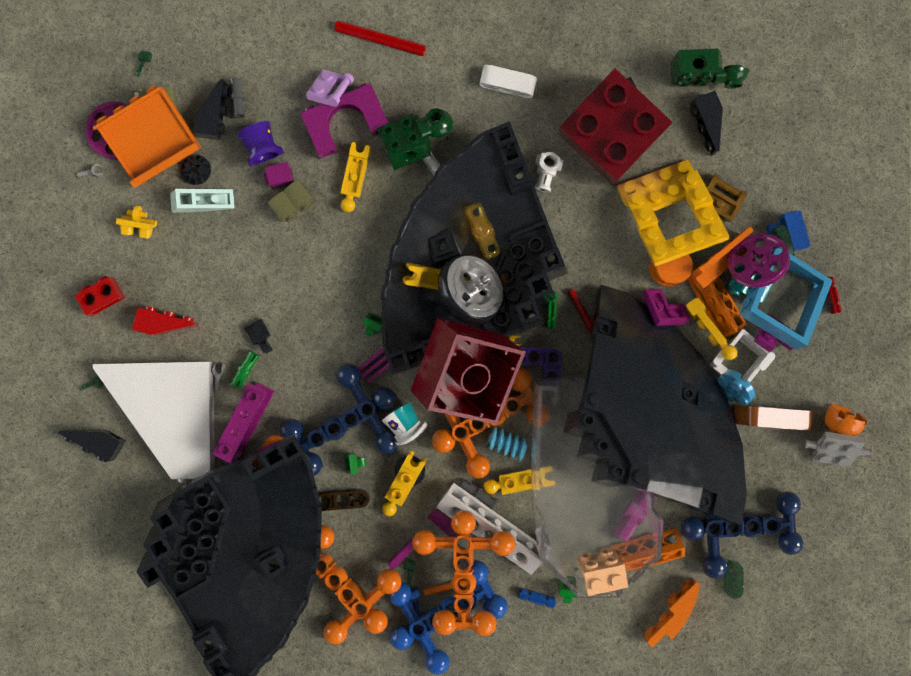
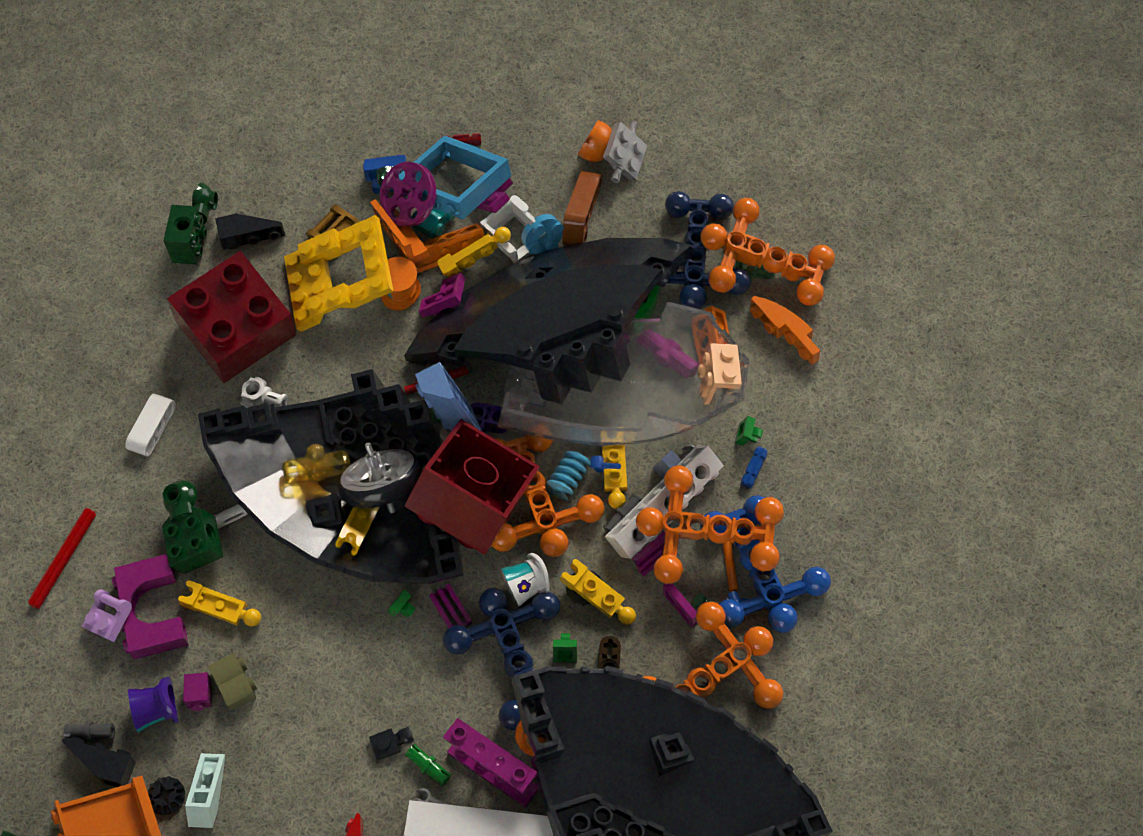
camera: 80 degrees left, 25 degrees down
(518, 468) = (599, 465): none -> blue hand
(524, 527) = (666, 463): none -> sand blue piece
(544, 338) = (444, 397): none -> medium blue slope
(710, 557) = (723, 277): none -> orange piece

